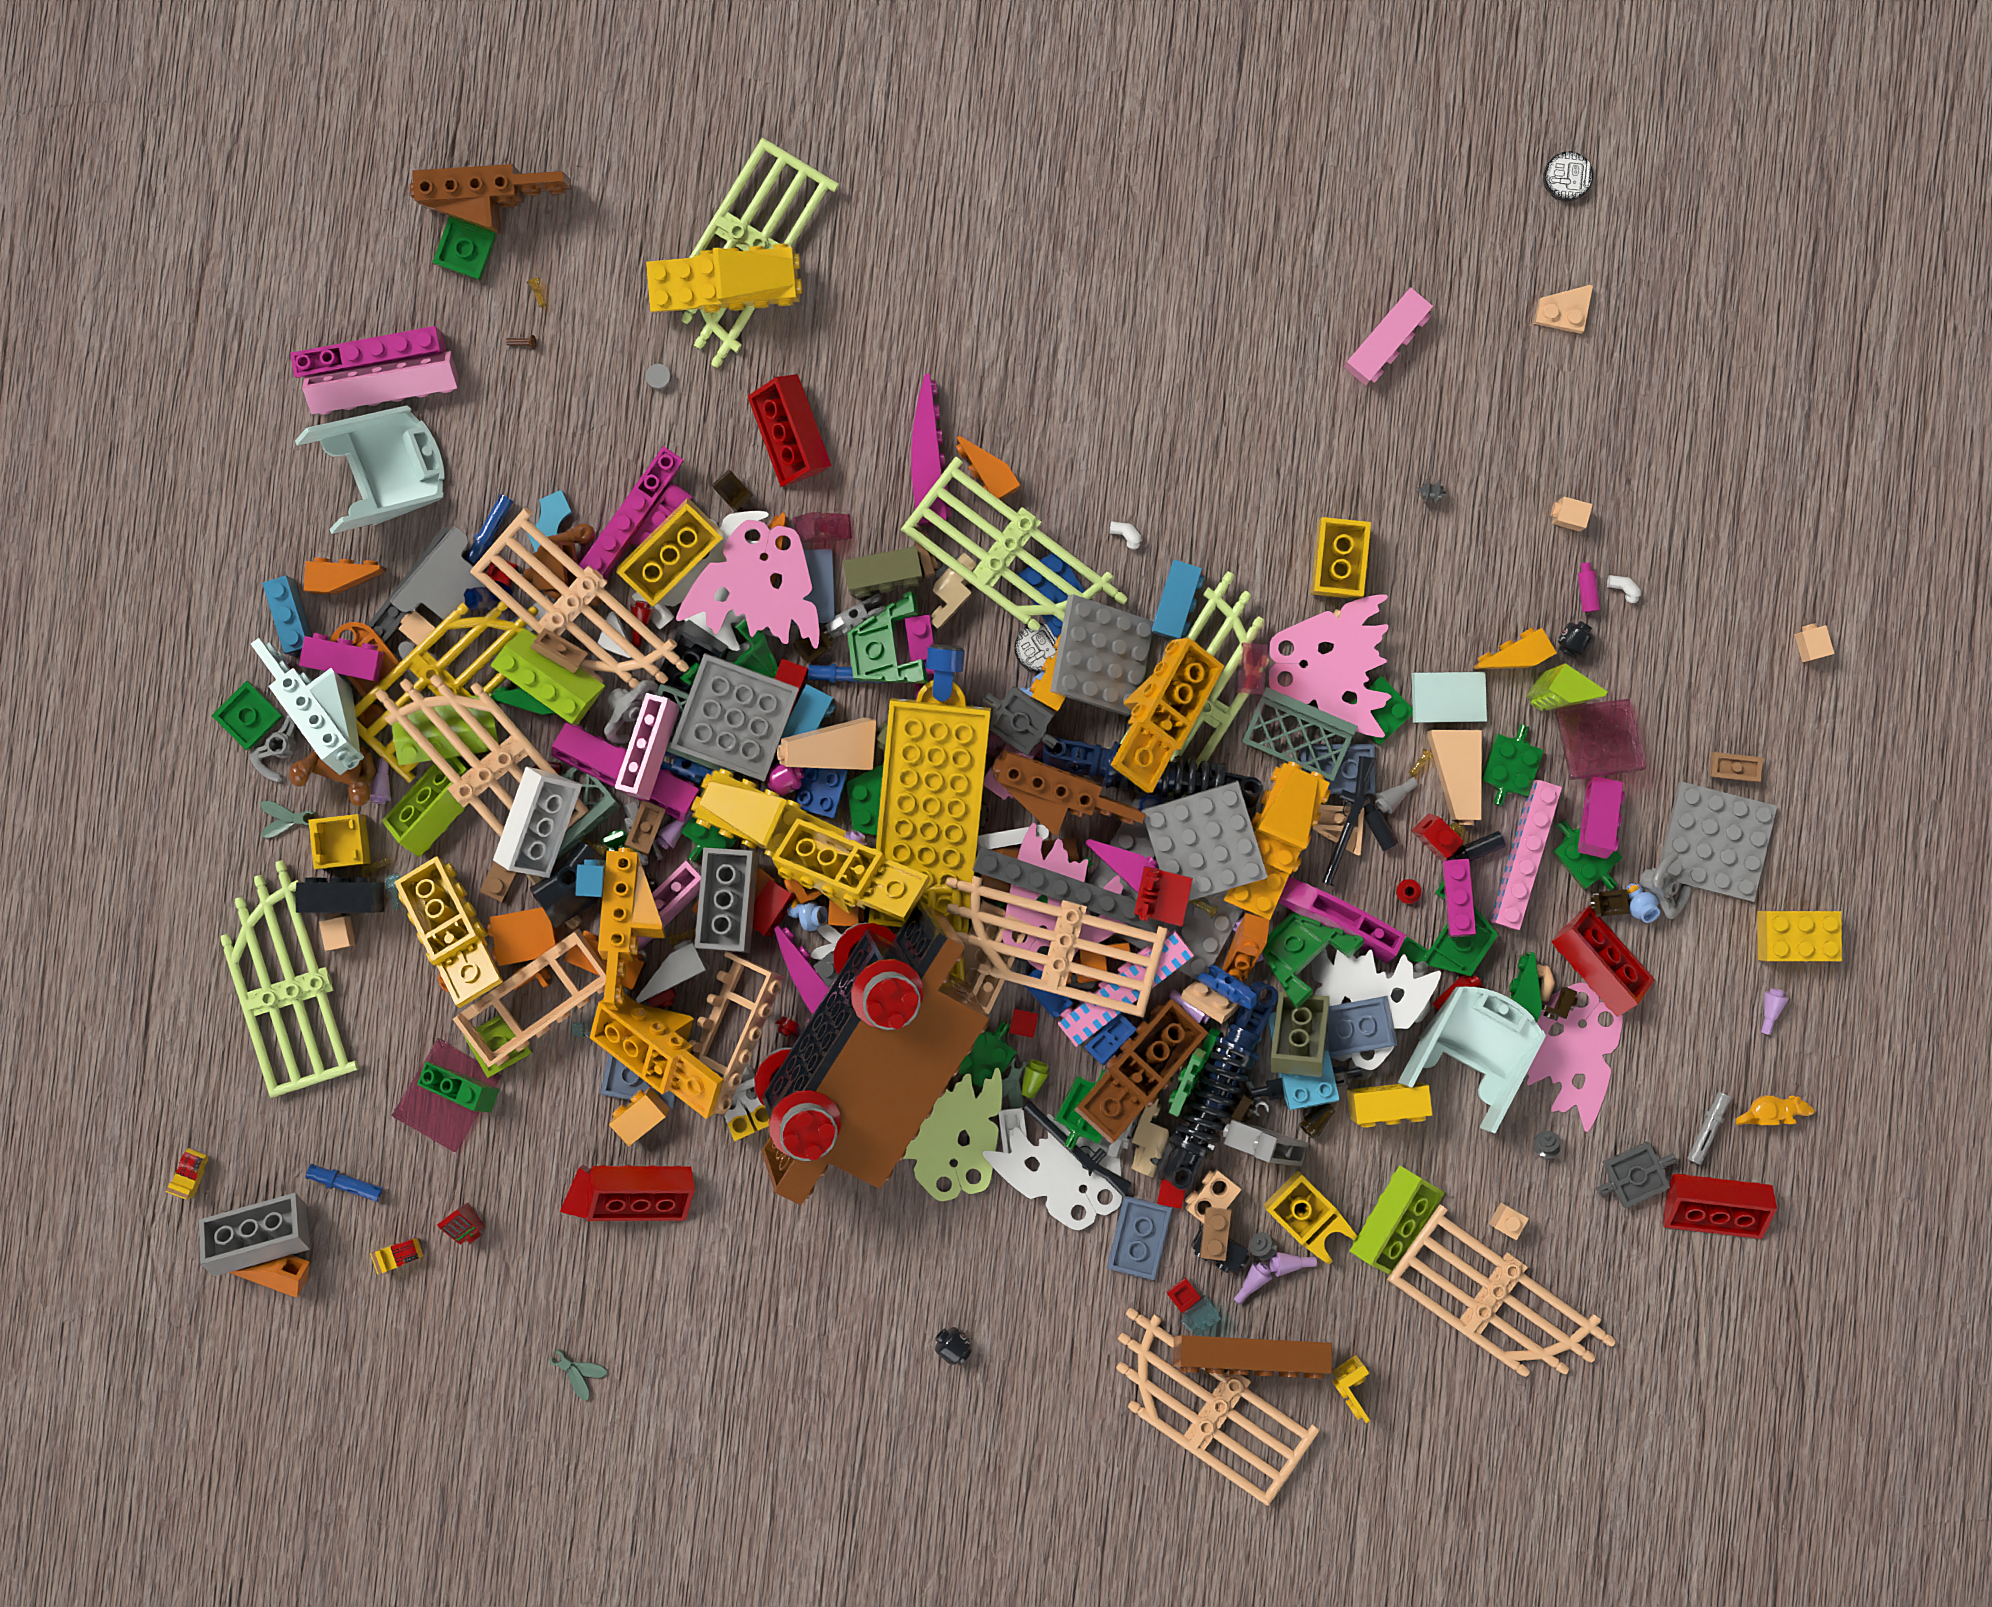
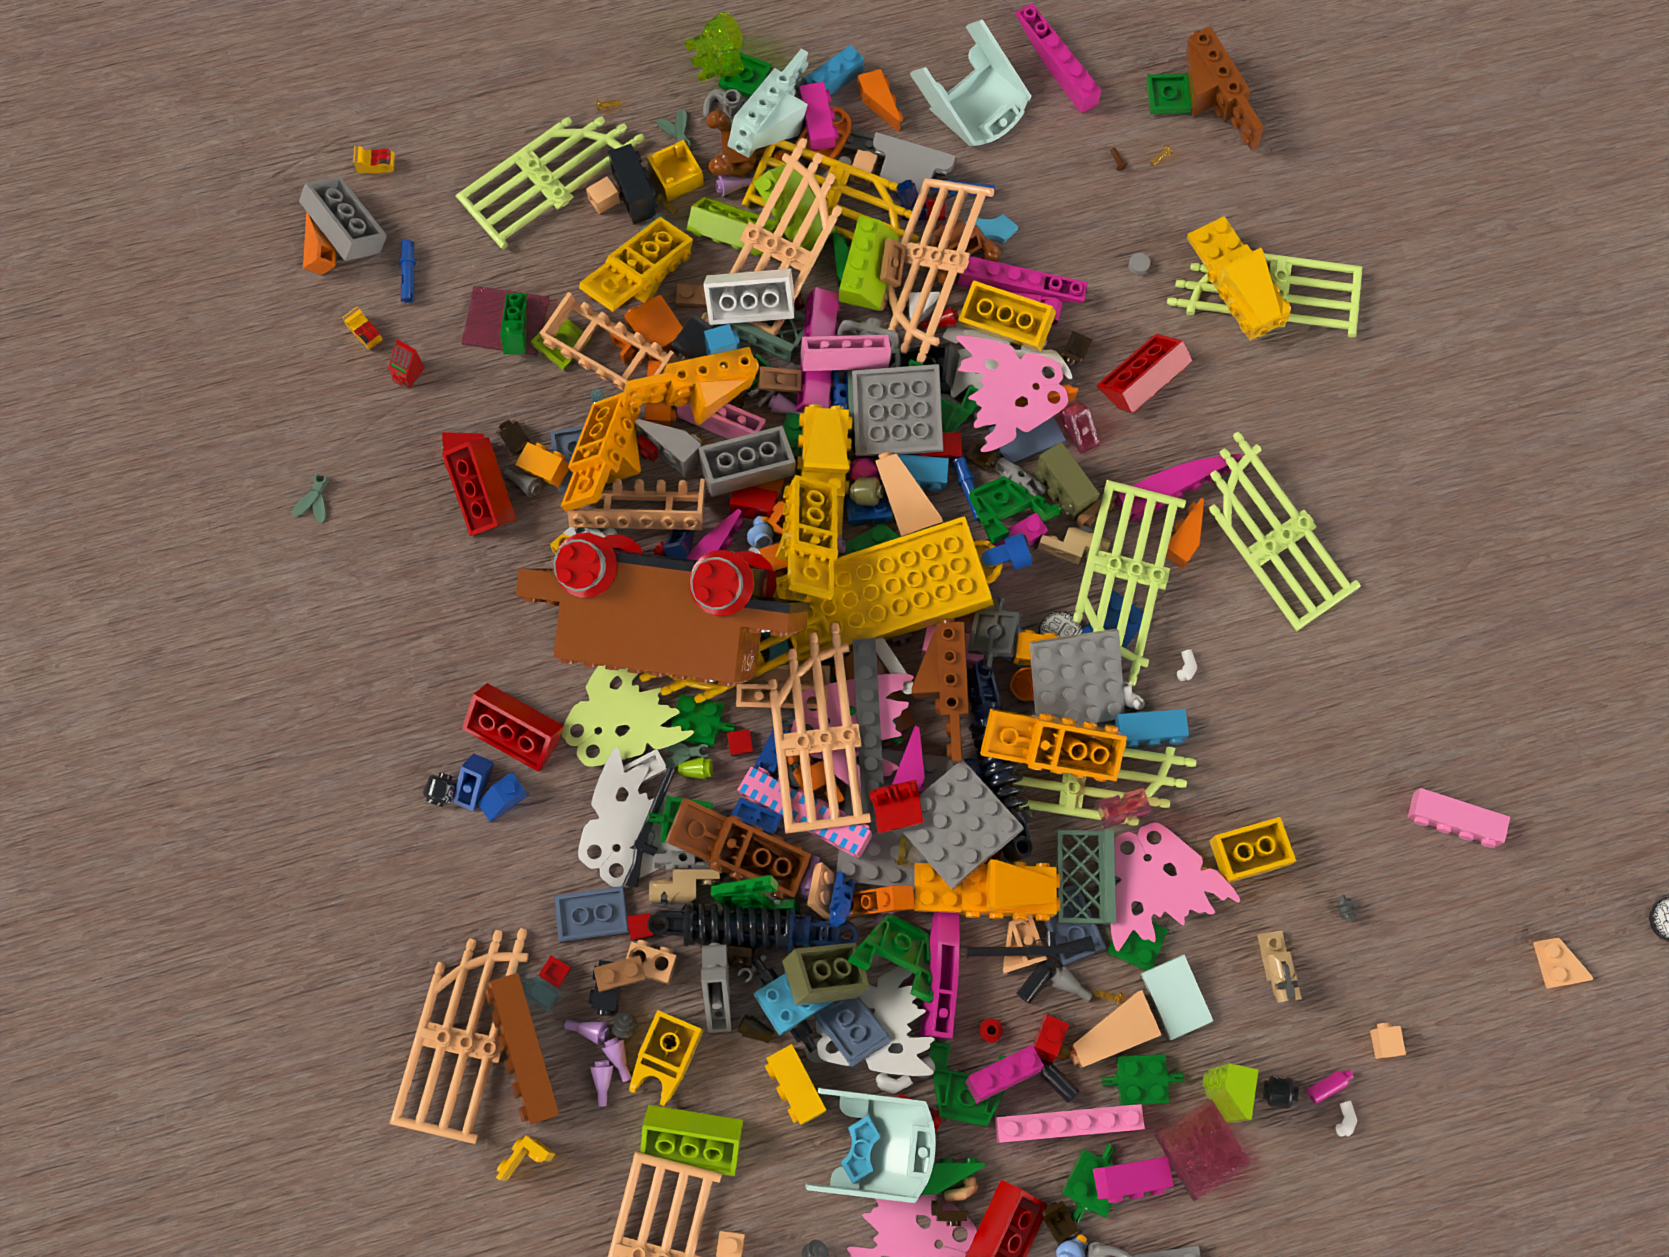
camera: 70 degrees right, 15 degrees down
(205, 735) = (719, 39): none -> clear neon green piece
(220, 885) = (606, 104): none -> clear yellow piece
(380, 383) = (1039, 72): bright pink brick -> none
(590, 1136) = (512, 436): none -> dark brown bracket
(651, 1140) = (528, 484): none -> light grey cone
(794, 1012) = (679, 543): none -> dark blue slope
(810, 786) = (866, 491): none -> olive head
(915, 1249) = (512, 726): none -> red slope
(957, 1309) = (472, 781): none -> blue slope
(985, 1284) = (502, 797): none -> blue slope
(1032, 376) = (1280, 538): none -> yellowish green piece
(1079, 712) = (1022, 684): none -> orange hair
(1138, 606) = (1131, 699): none -> white arm
(1302, 1285) = (602, 1075): none -> lavender cone
(1461, 584) = (1279, 967): none -> tan plate
(1462, 1056) = (863, 1136): none -> medium azure tile
(1524, 653) = (1243, 1045): light orange slope -> none

